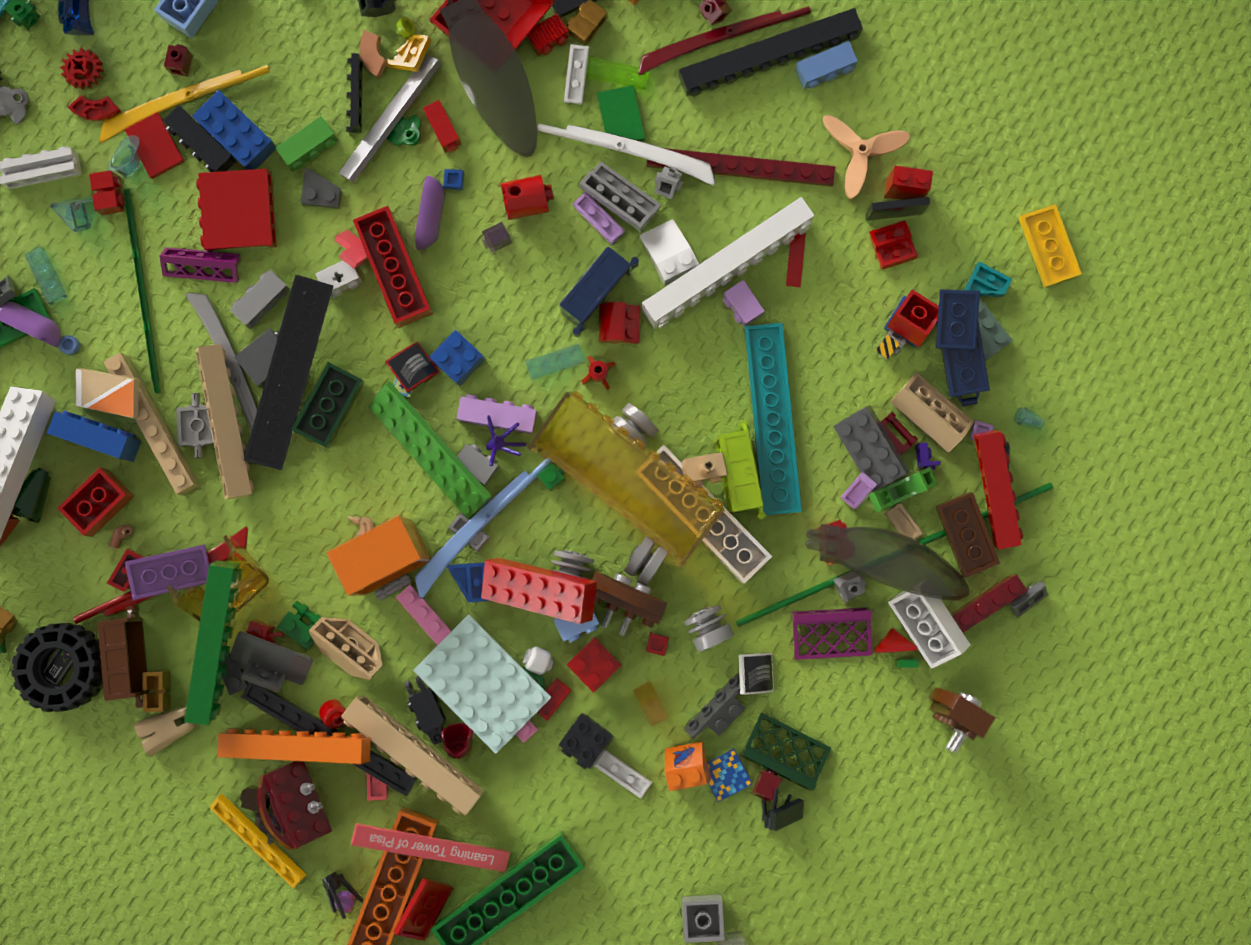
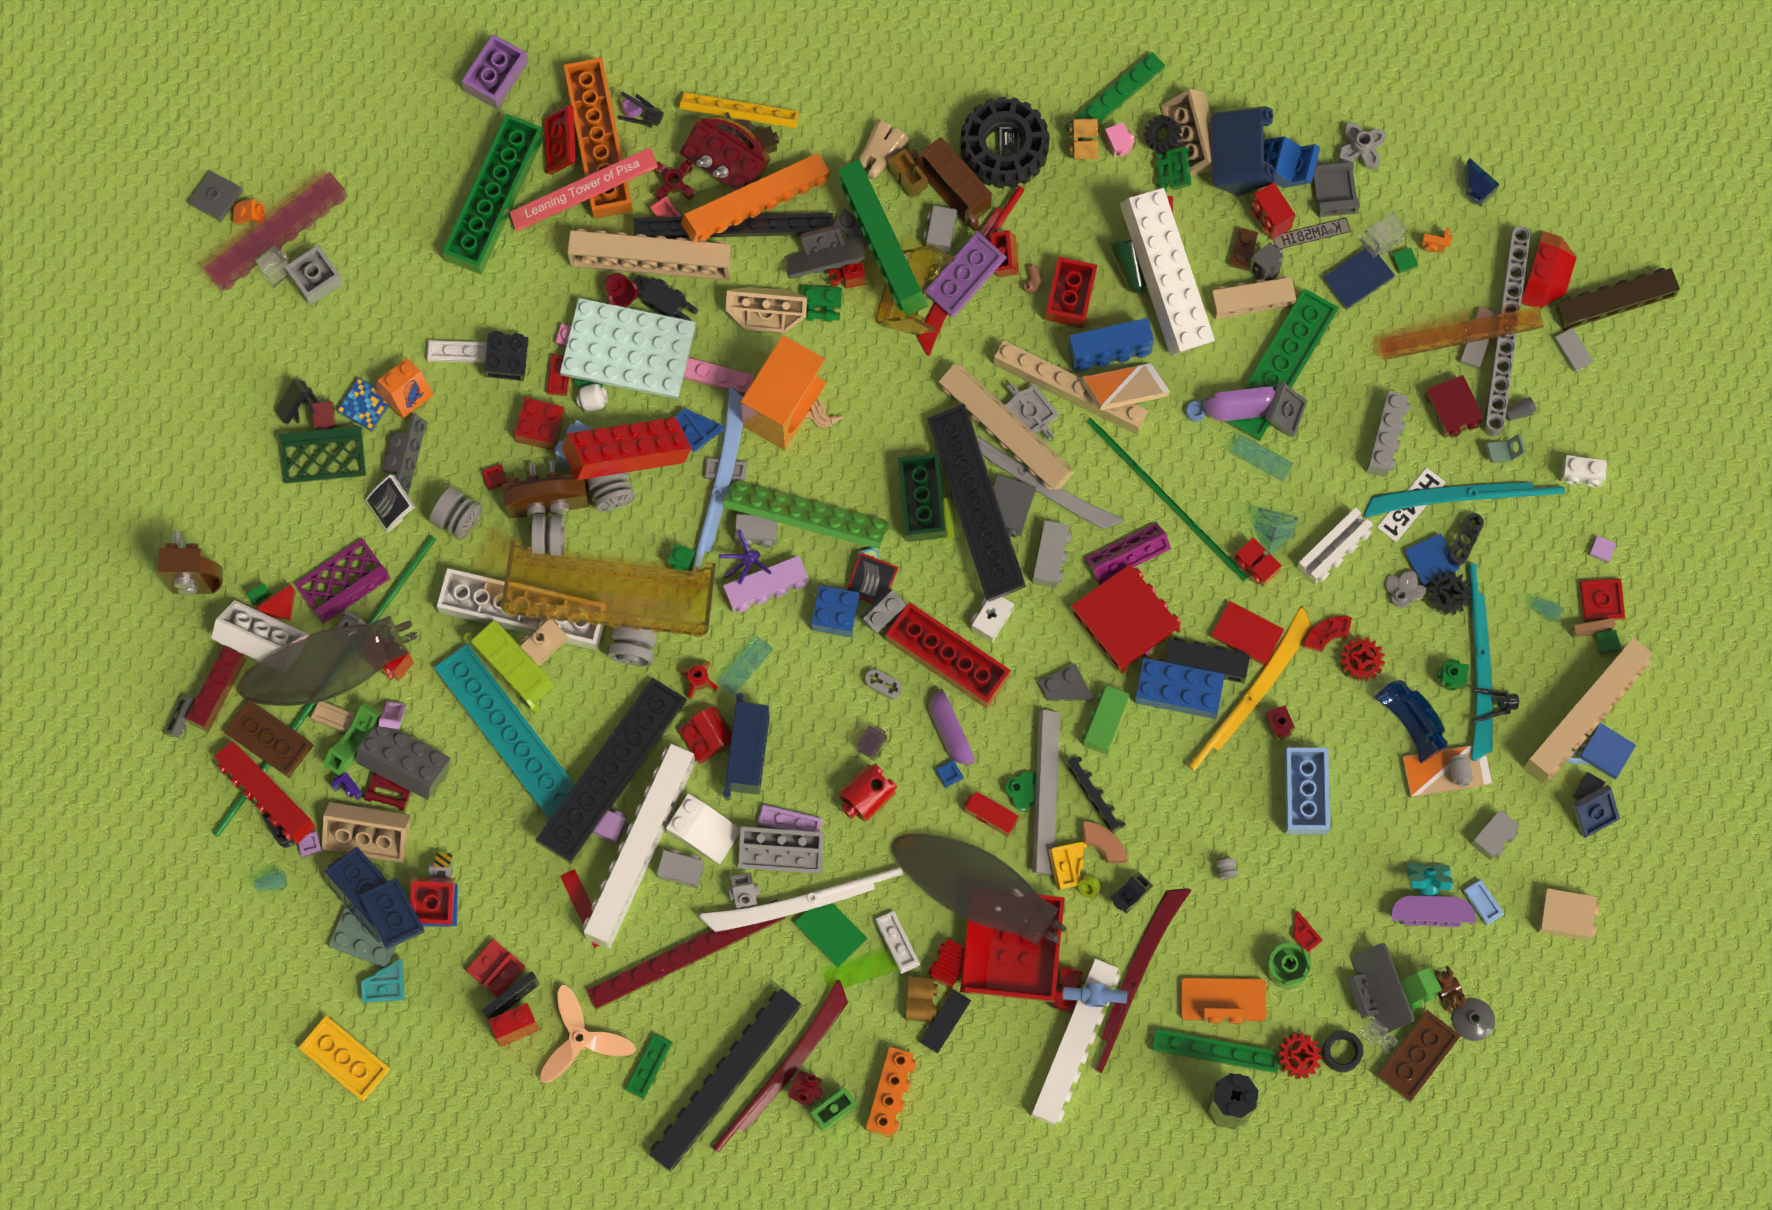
camera: 145 degrees right, 10 degrees down
(125, 158) = (1263, 603): clear light blue piece -> none
(163, 626) = (941, 228): none -> light grey brick
(331, 713) = (743, 246): red head -> none
(347, 795) = (679, 174): none -> dark red pin
(355, 252) = (988, 643): coral tile -> none
(420, 333) = (883, 610): none -> brick
(461, 277) = (881, 688): none -> light grey beam
(650, 703) = (468, 422): clear yellow slope -> none
(705, 231) = (681, 868): none -> light grey brick
(713, 336) = (611, 770): none -> black plate
(820, 100) = (648, 1066): none -> green tile
(826, 65) = (663, 1100): medium blue brick -> none

